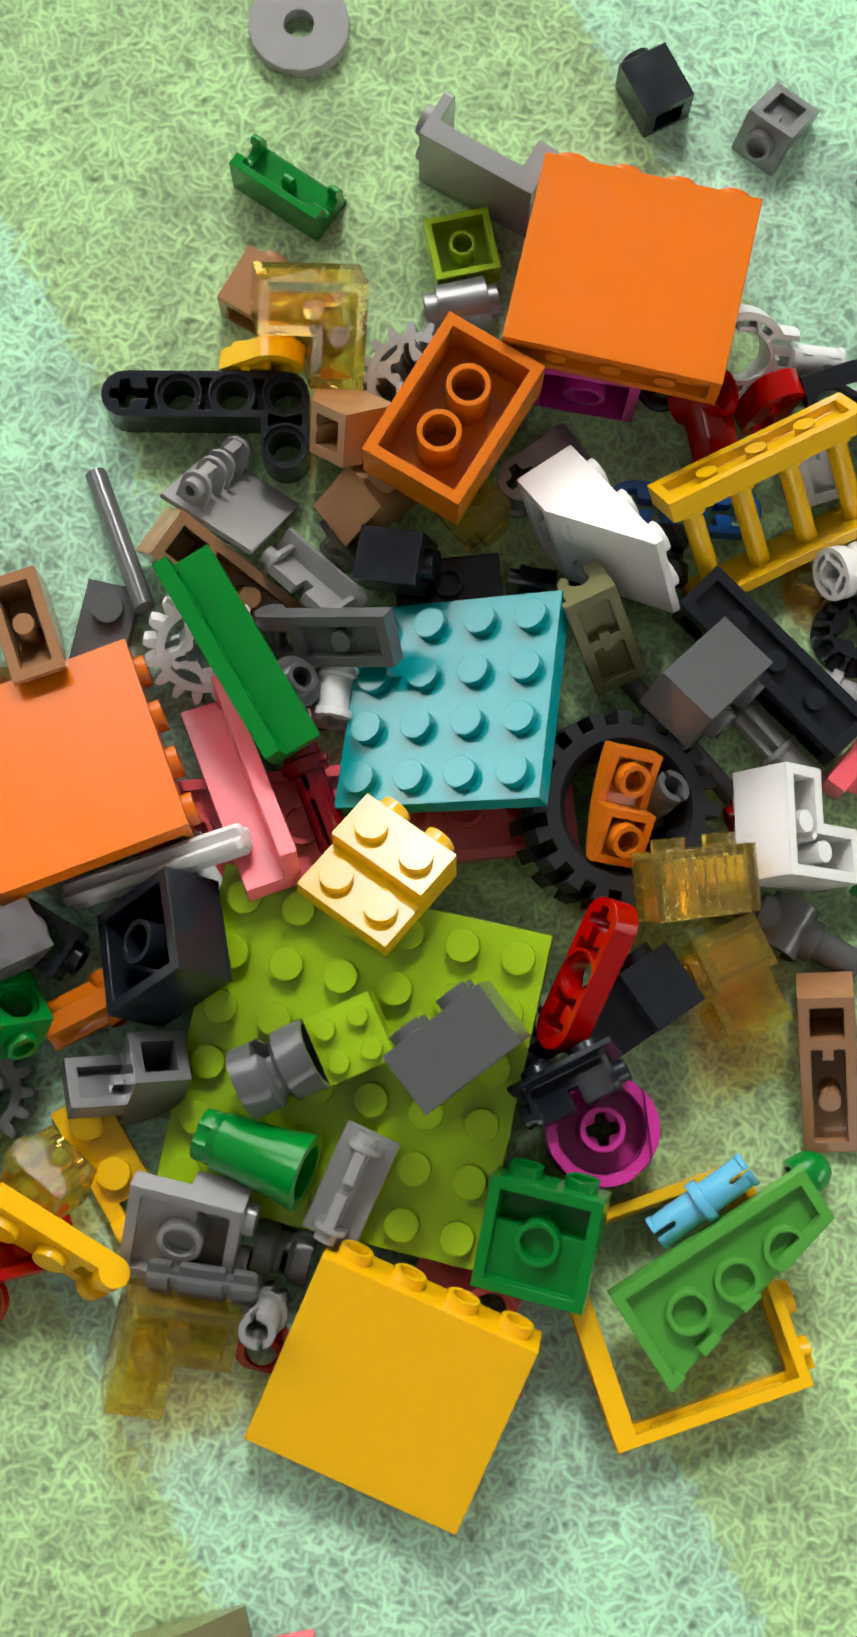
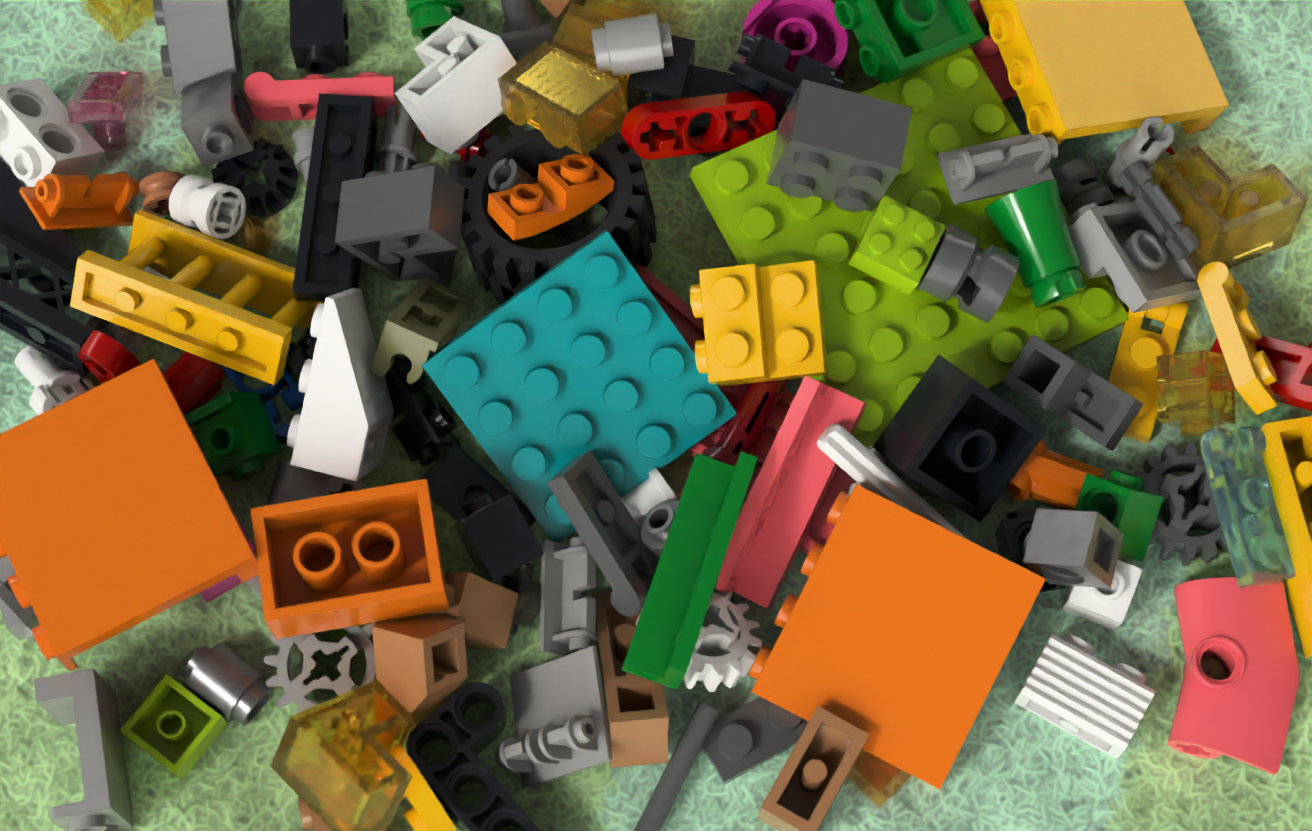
camera: 130 degrees left, 10 degrees down
(641, 448) = (235, 434): none -> green brick
(691, 964) = (632, 45): none -> light grey brick

